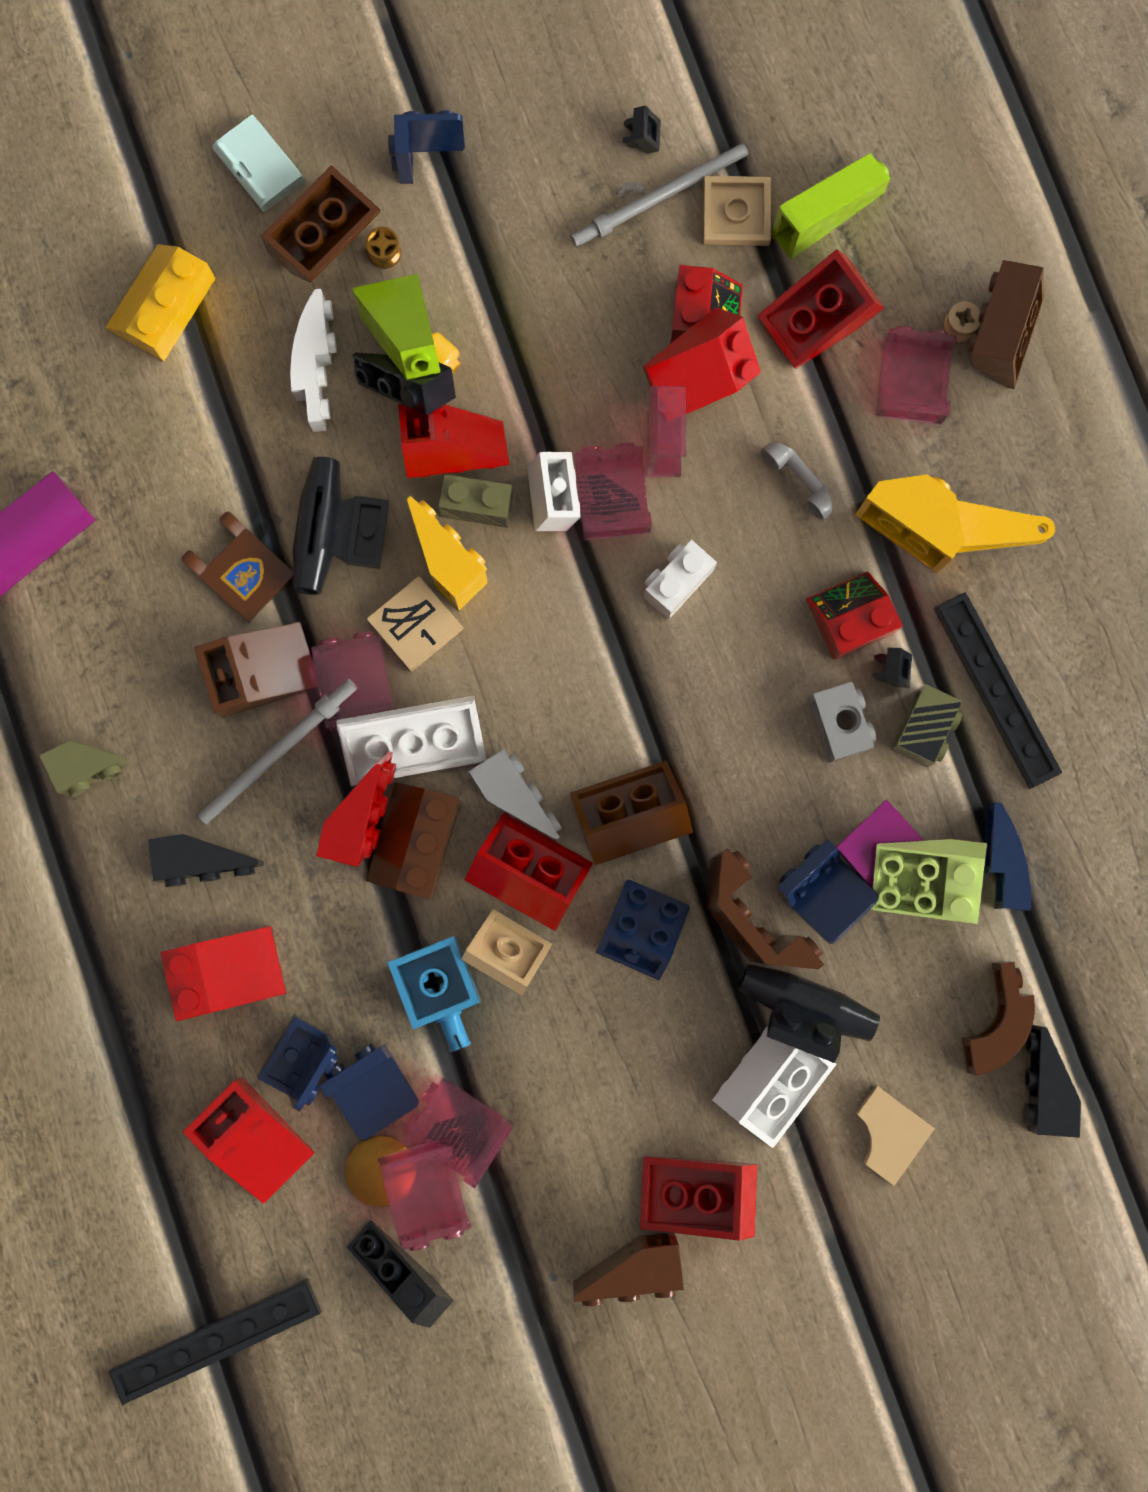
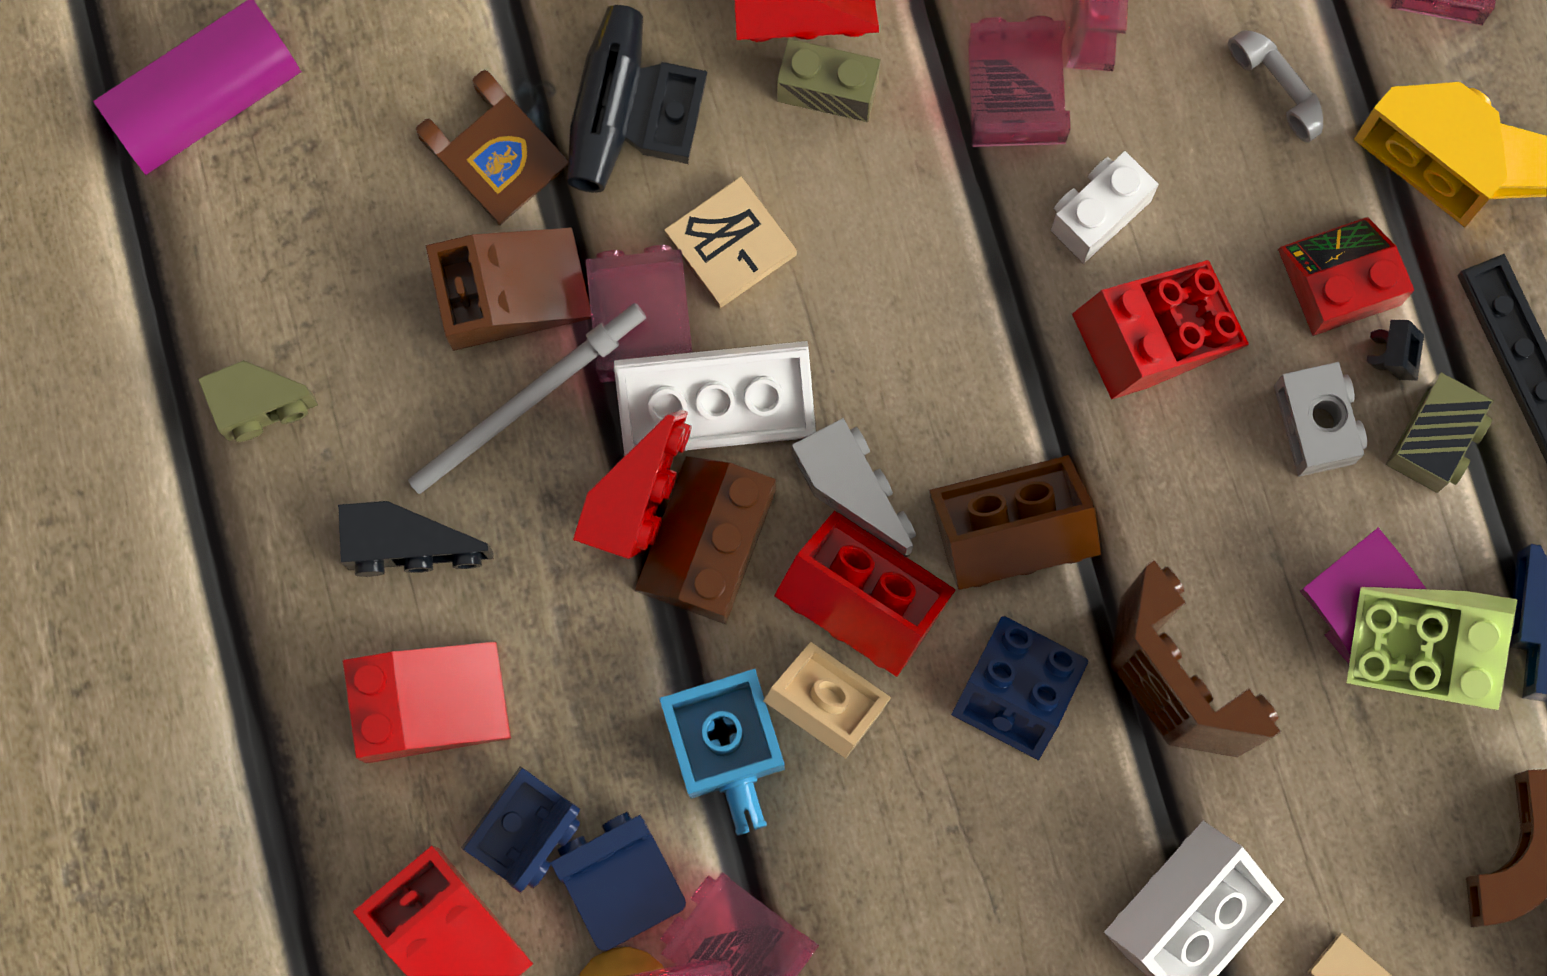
camera: 10 degrees right, 5 degrees down
(453, 569) = (791, 166): yellow slope -> none
(553, 491) = (936, 74): white brick -> none
(724, 664) = (1158, 328): none -> red slope
(807, 1012) = (1248, 815): black plate -> none
(826, 892) = (1284, 652): dark blue bracket -> none

